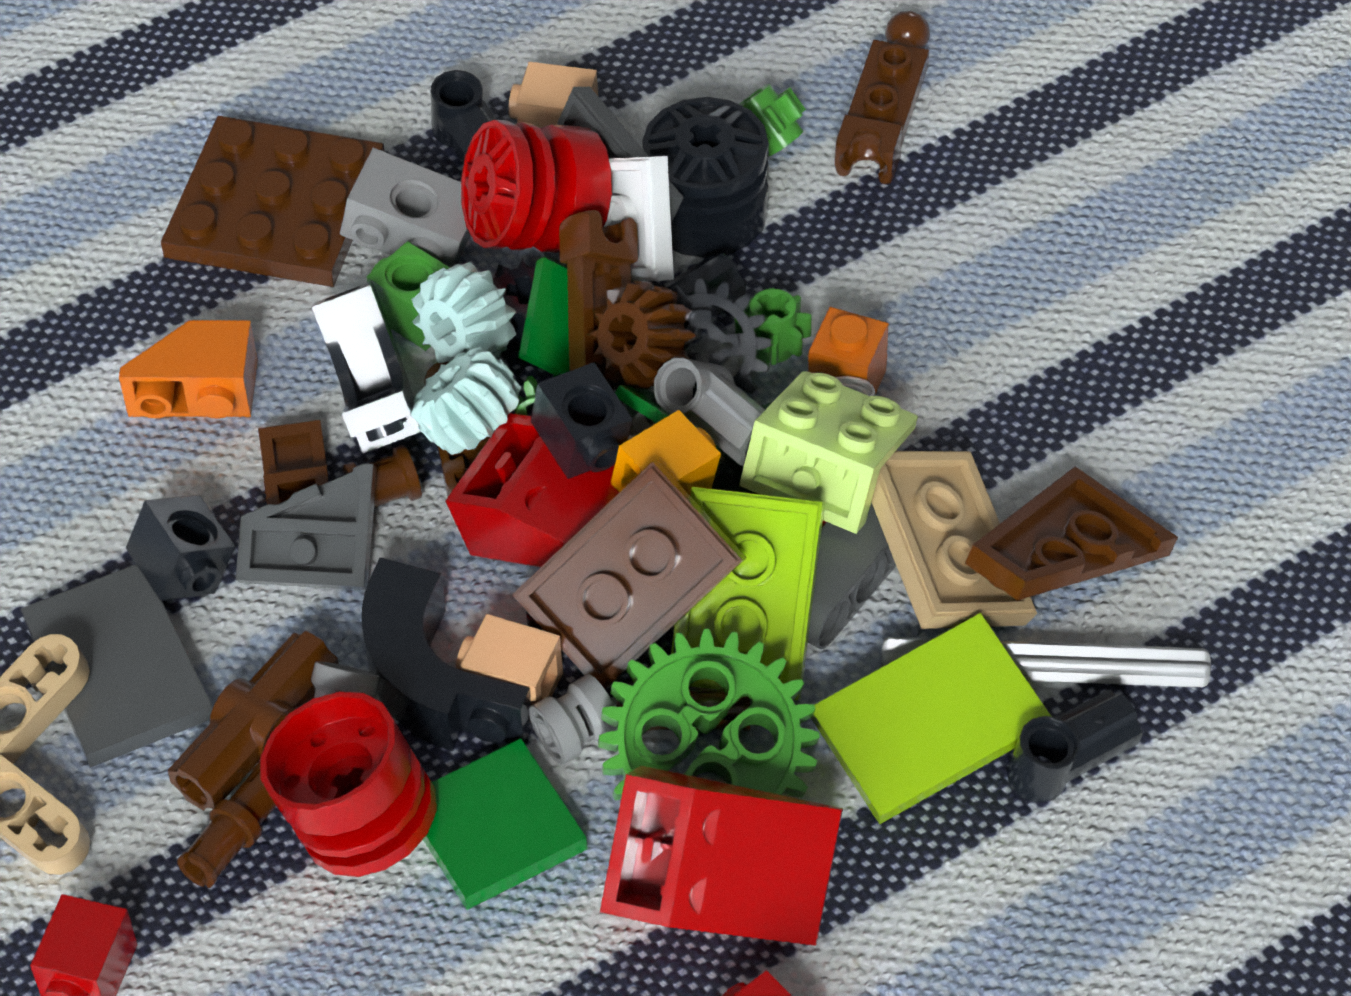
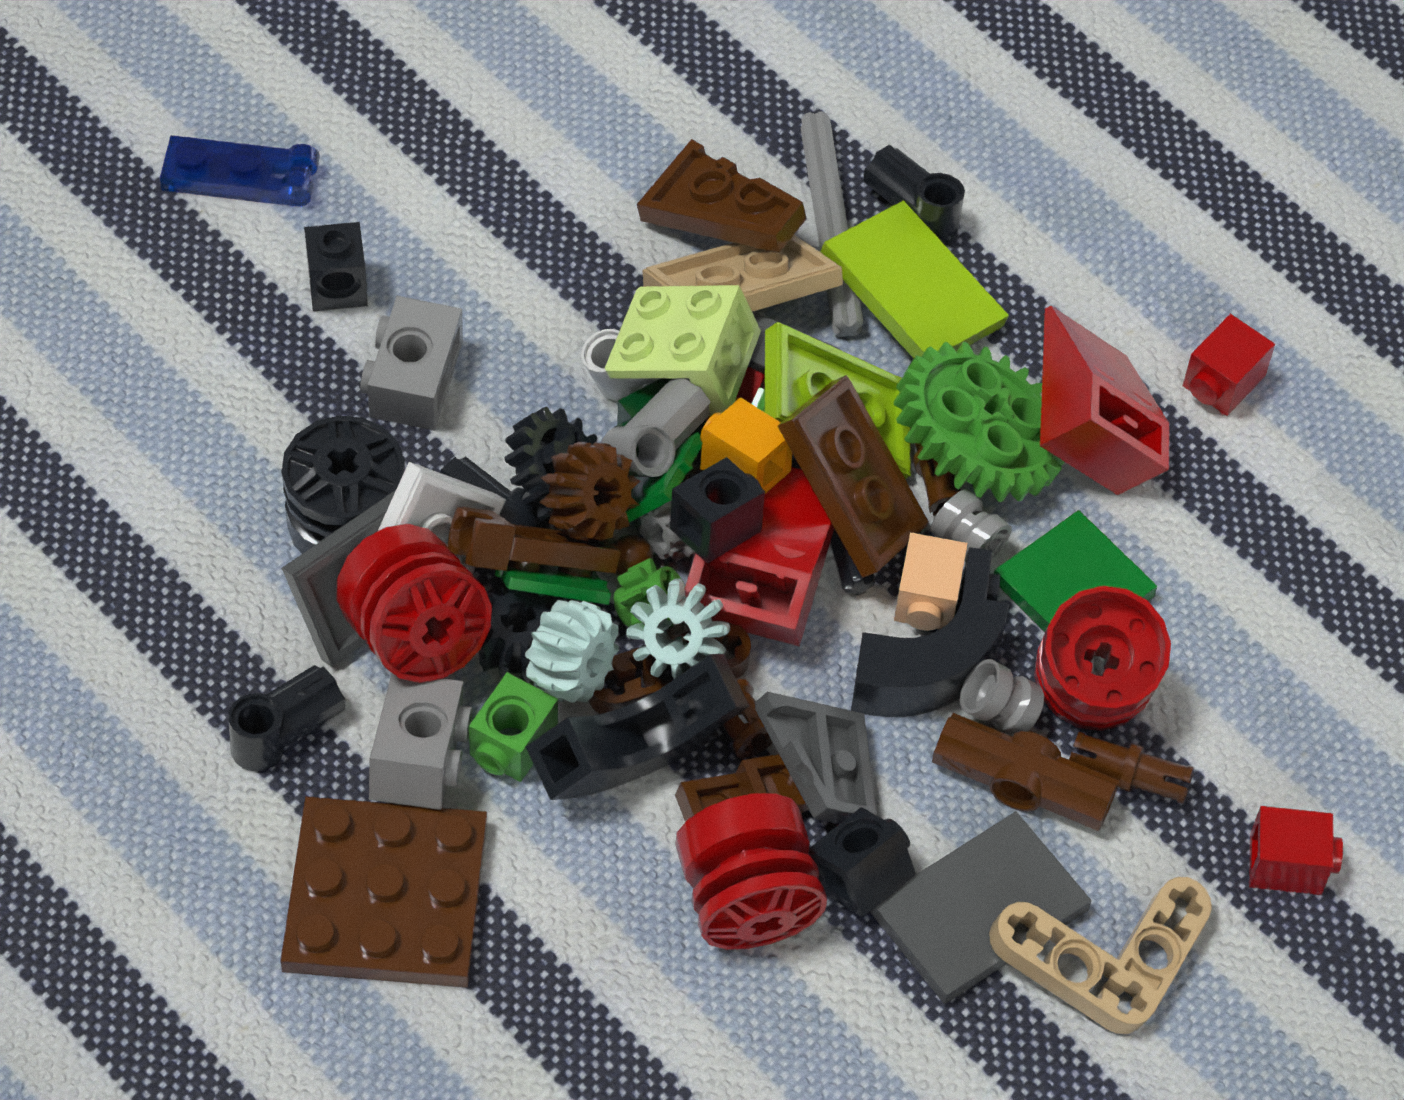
camera: 105 degrees left, 5 degrees up
(180, 437) = (750, 871): none -> red wheel
(194, 372) = (638, 902): orange slope -> none
(546, 91) = (243, 645): light nougat brick -> none
(777, 114) = (249, 460): bright green gear -> none
(784, 324) = (496, 426): bright green gear -> none
(850, 347) = (547, 368): orange brick -> none
(876, 258) = (413, 390): none -> light grey brick
(885, 97) = (201, 377): reddish brown plate -> none
(1008, 200) = (336, 266): none -> black brick
(1161, 147) = (239, 170): none -> clear blue plate

